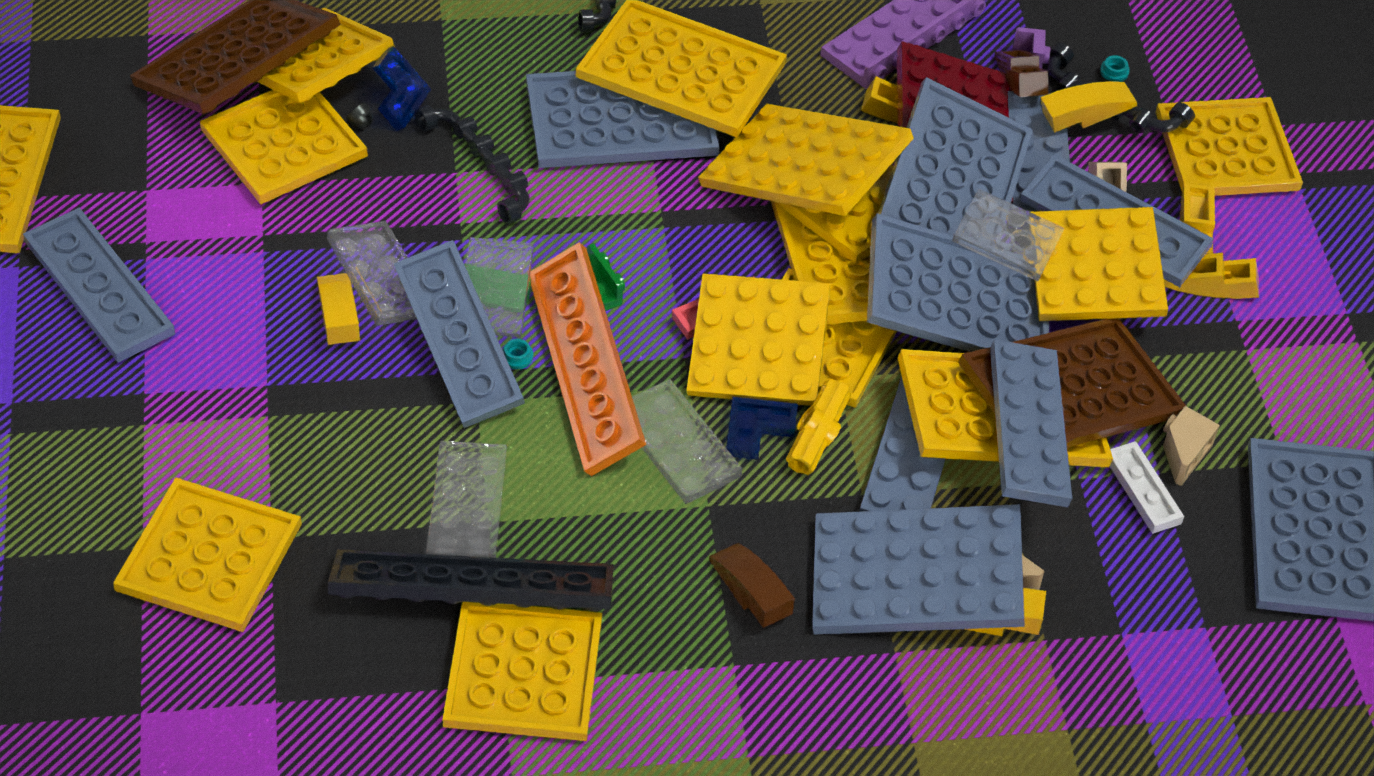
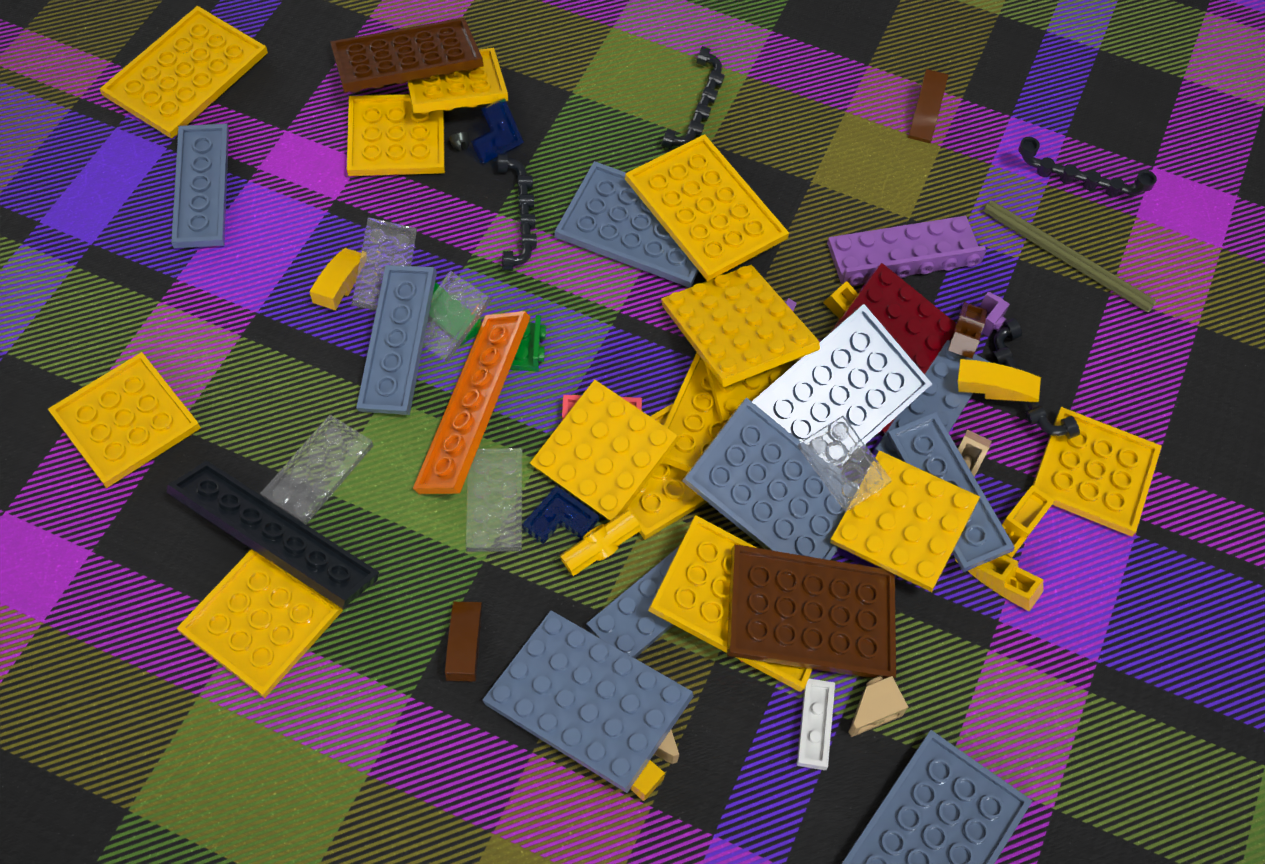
camera: 30 degrees right, 10 degrees up
(518, 353) = (433, 368): teal plate -> none
(1030, 424) = (743, 631): sand blue plate -> none
(1115, 68) = (1053, 357): teal plate -> none

